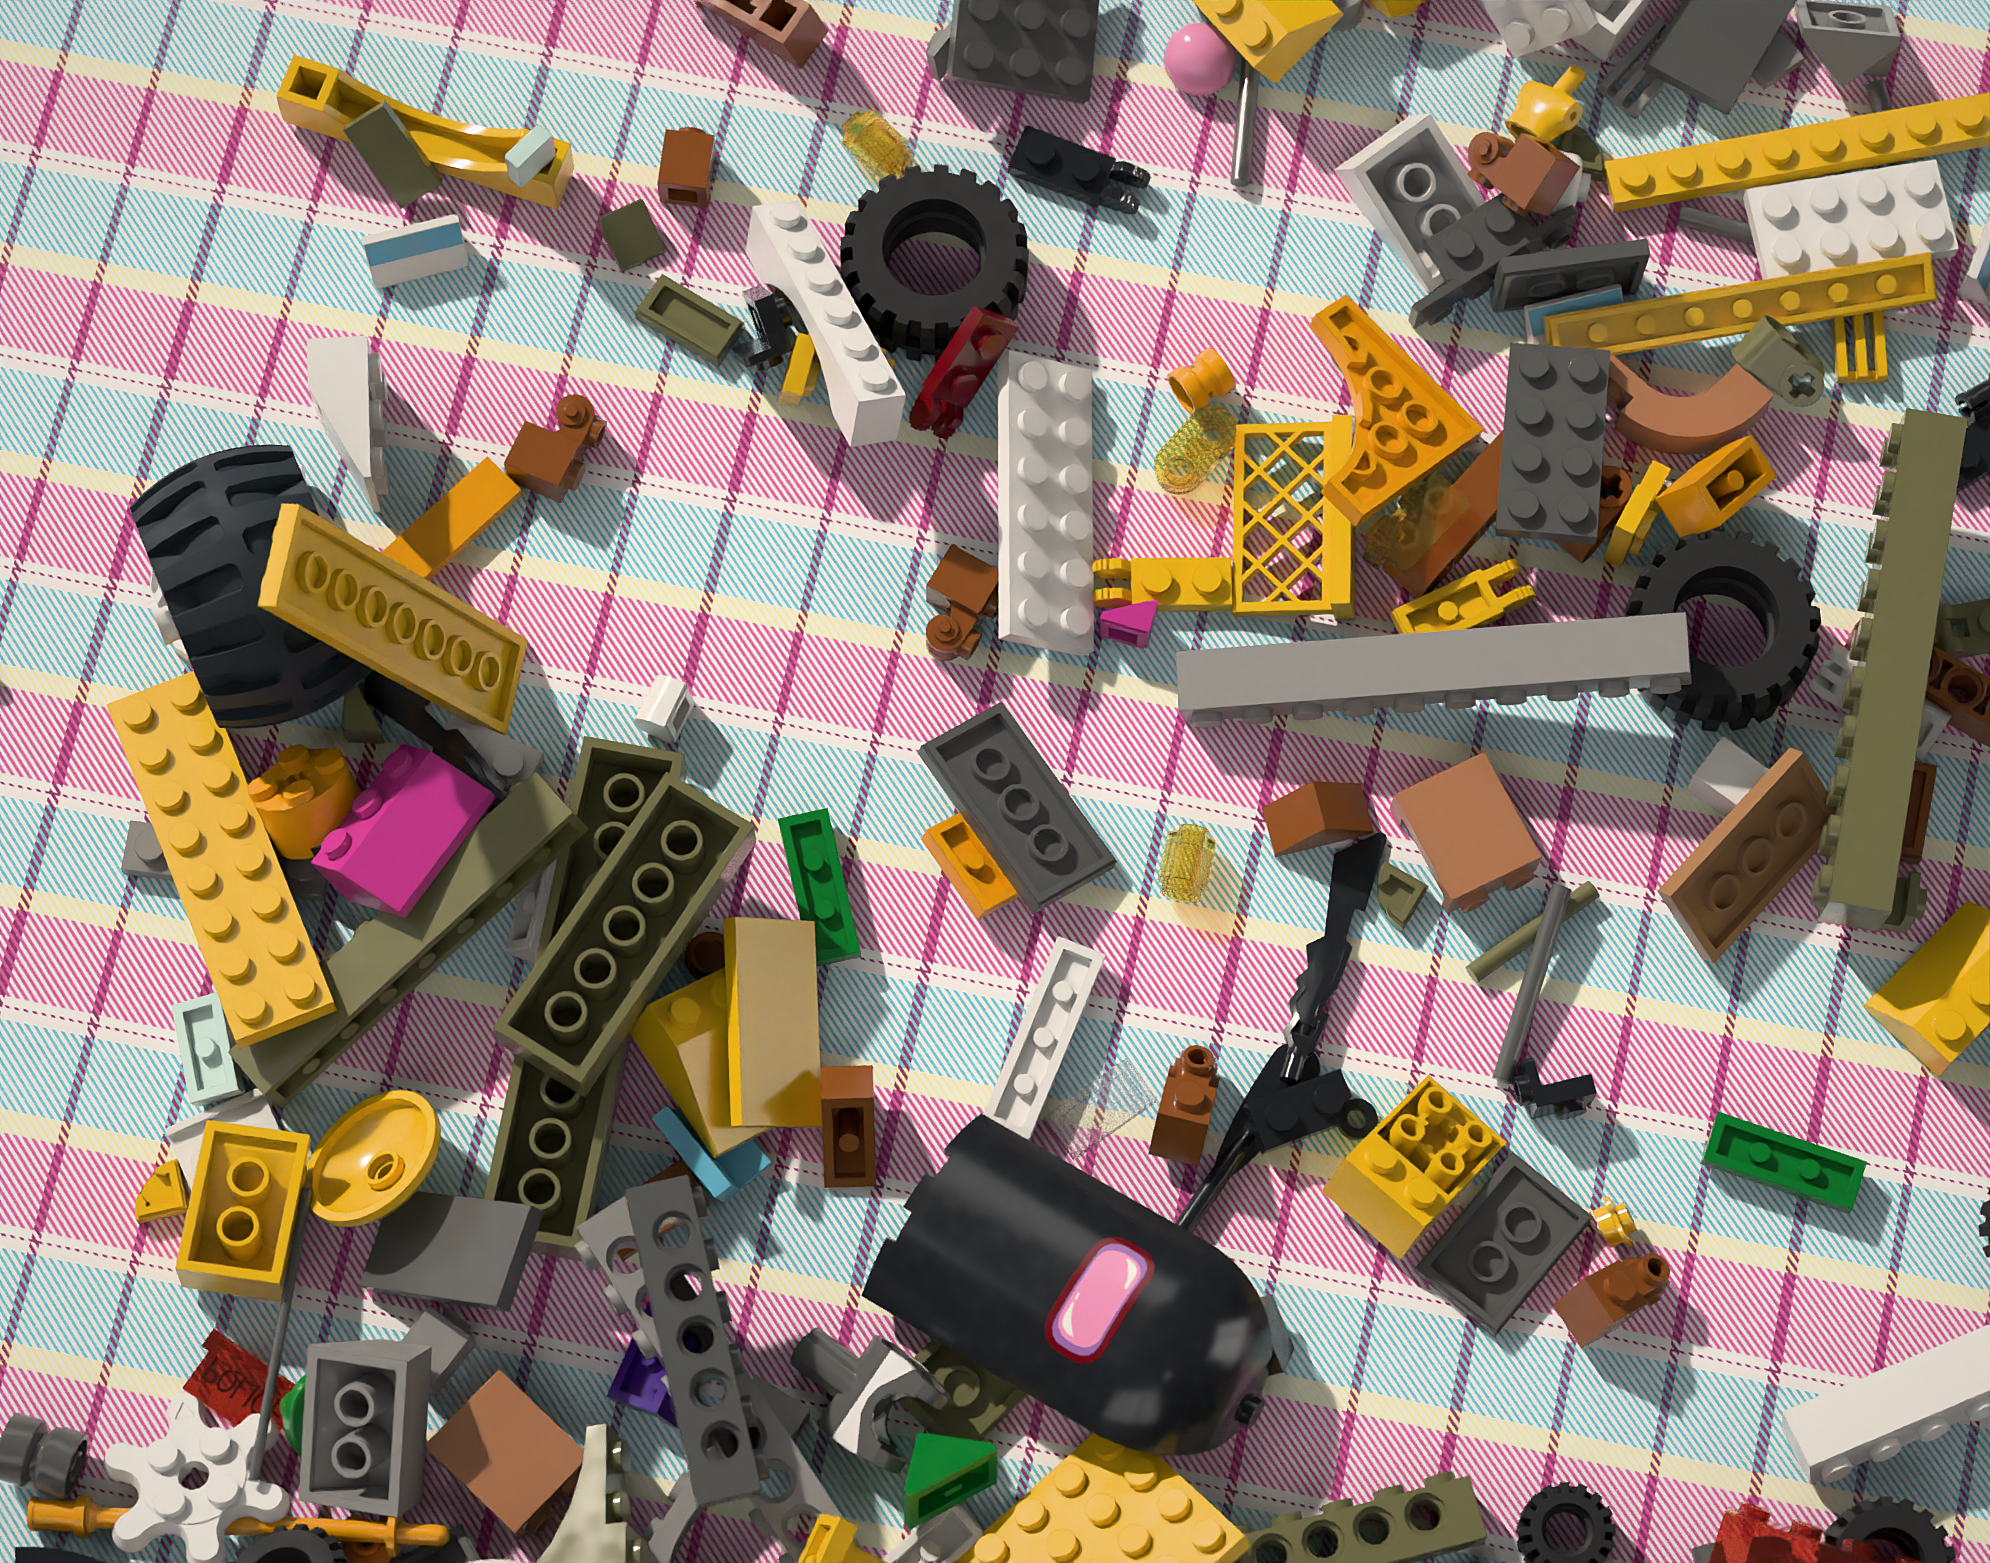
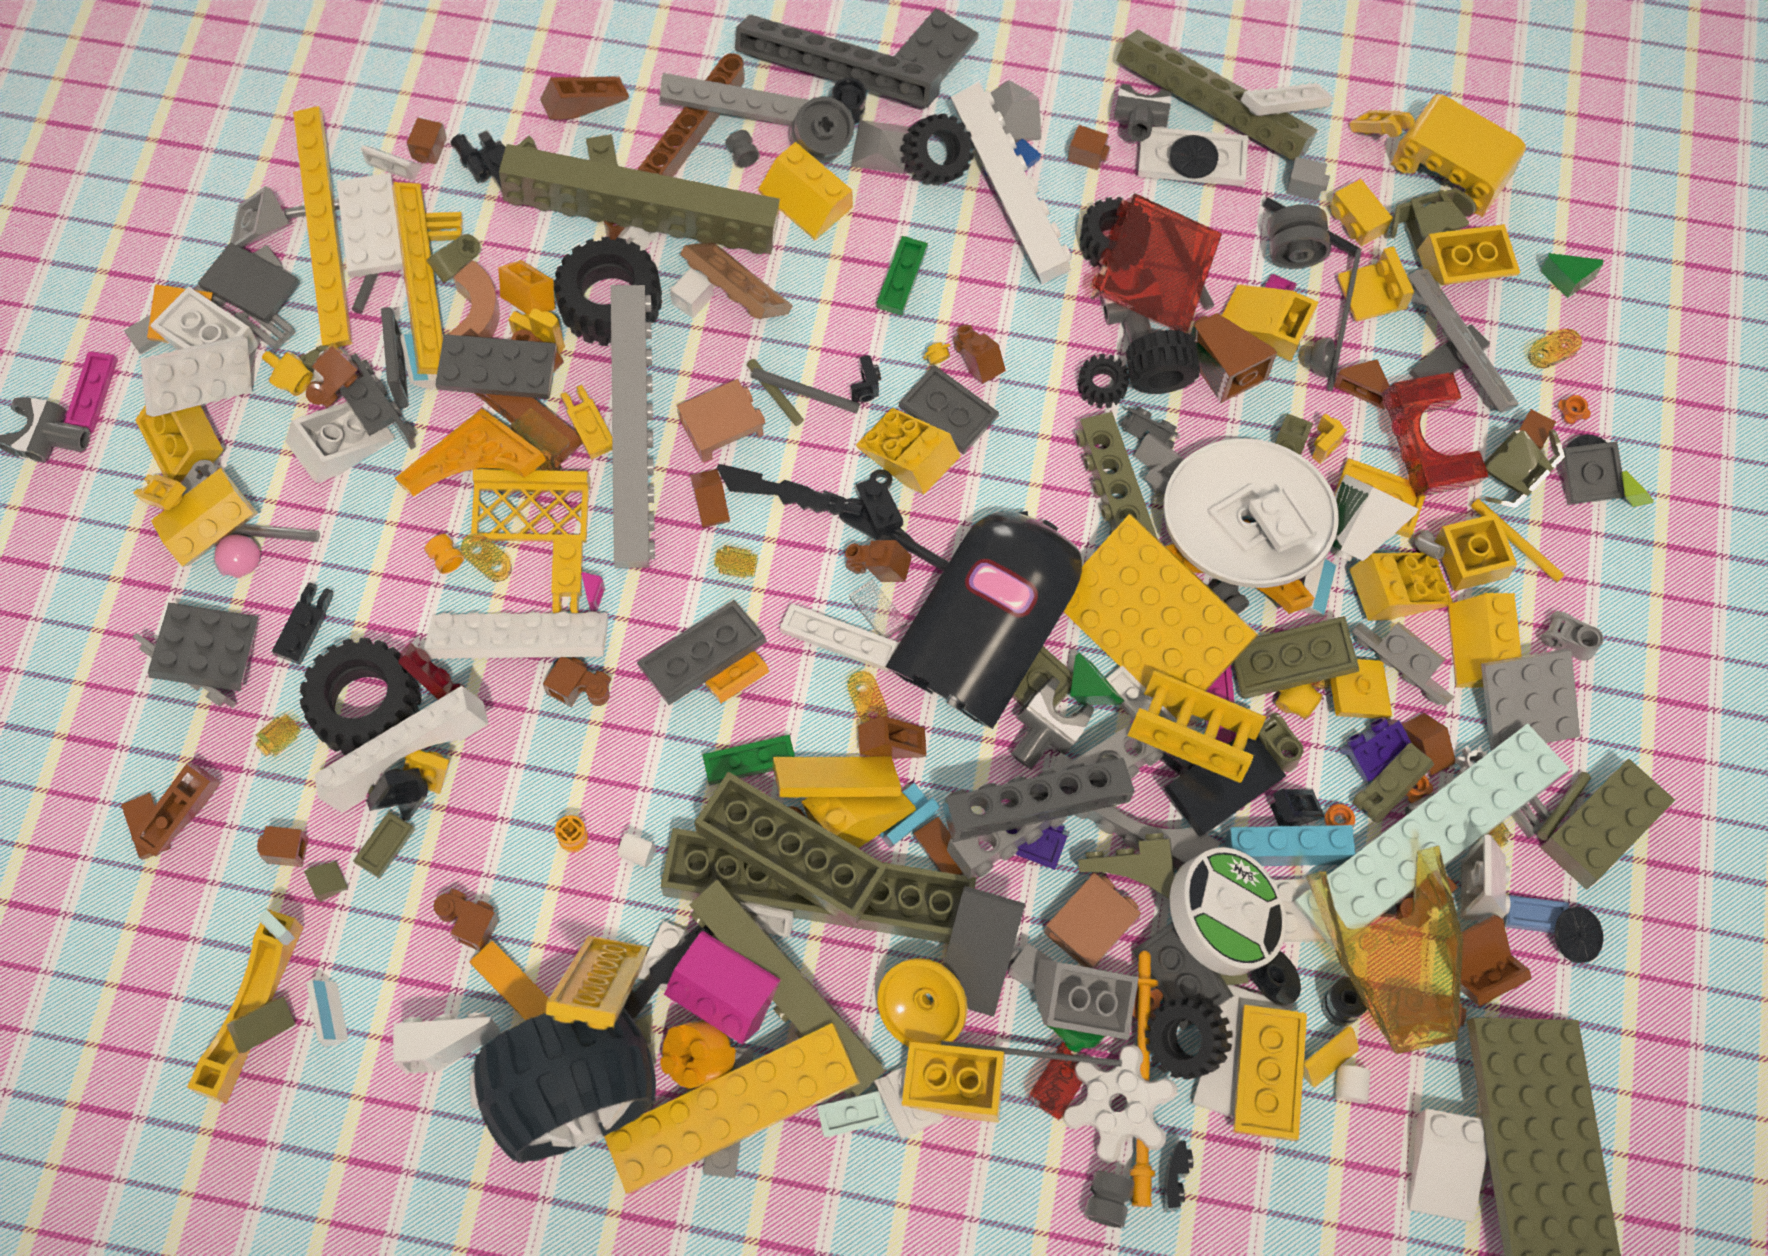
camera: 90 degrees left, 5 degrees down
(162, 1194) = (940, 1139): yellow tile -> none
(695, 615) = (573, 840): none -> light orange wheel
(923, 1083) = (866, 701): none -> clear yellow plate
(1398, 895) = (754, 457): olive tile -> none

